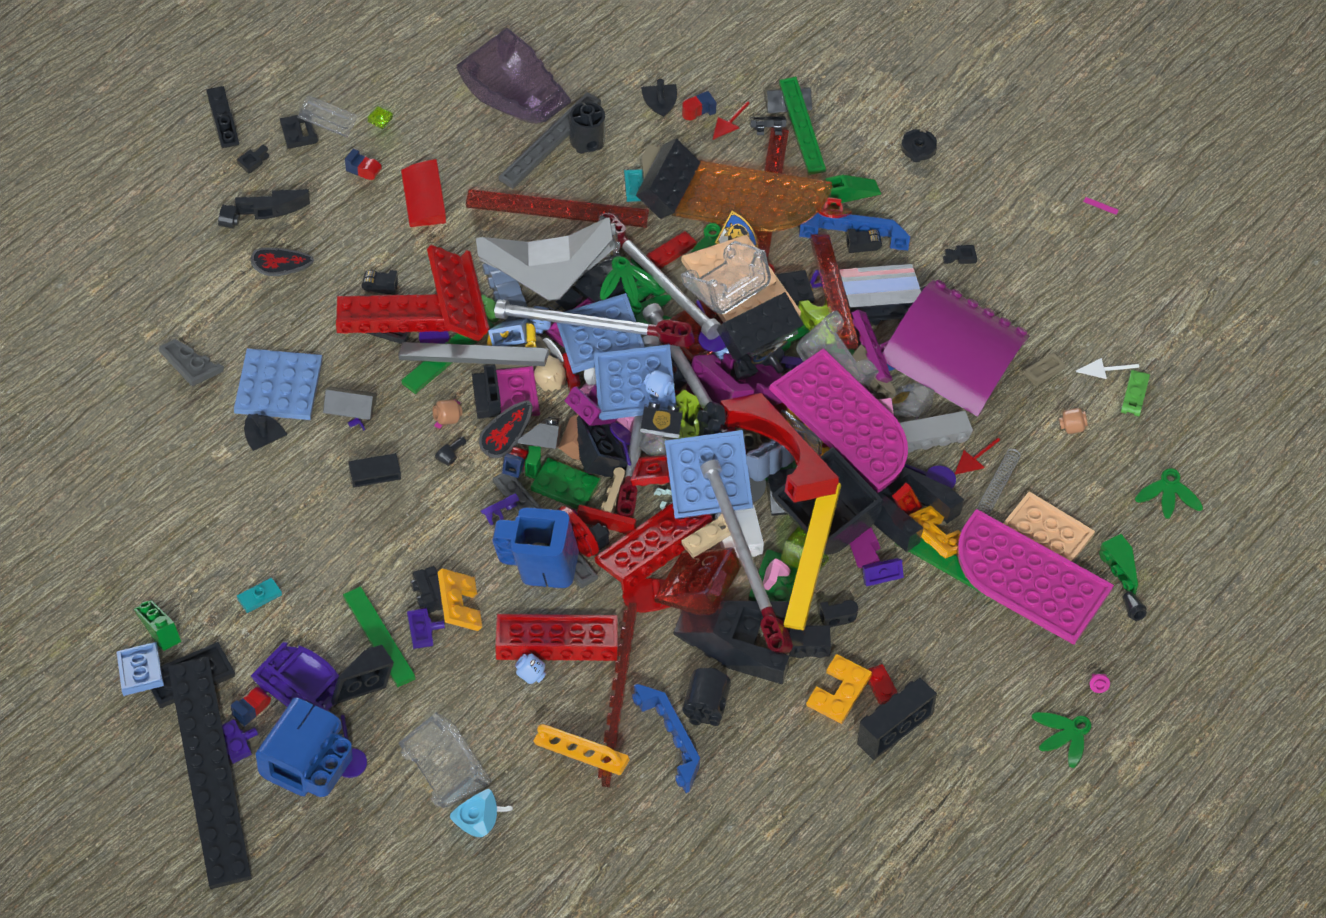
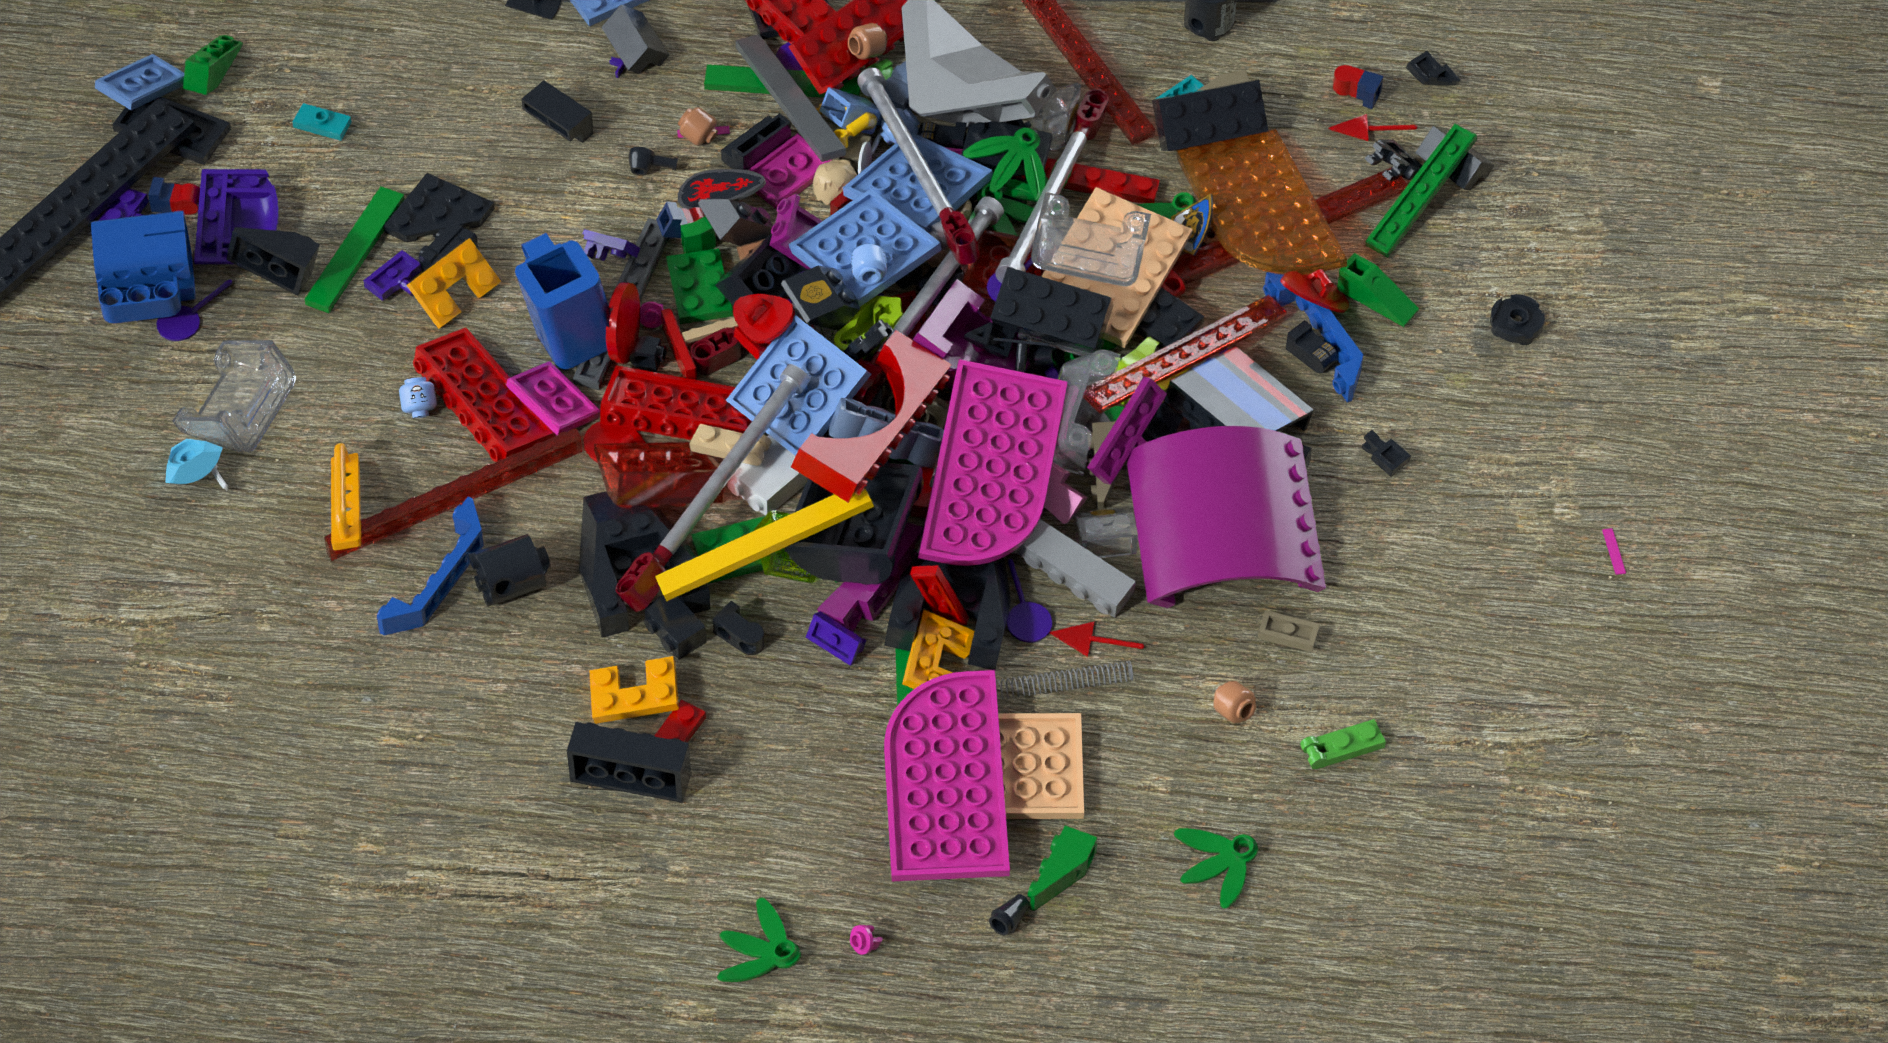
camera: 55 degrees right, 0 degrees up
(387, 577) = (434, 206): none -> black plate
(474, 290) = (867, 41): none -> nougat head
(590, 602) = (553, 398): none -> dark pink tile
(643, 459) = (763, 316): none -> red shield
(660, 97) = (1341, 46): black shield -> none
(716, 73) = (1430, 72): none -> black slope
(775, 569) = (726, 531): bright pink tile -> none
(1098, 370) = (1346, 685): white piece -> none

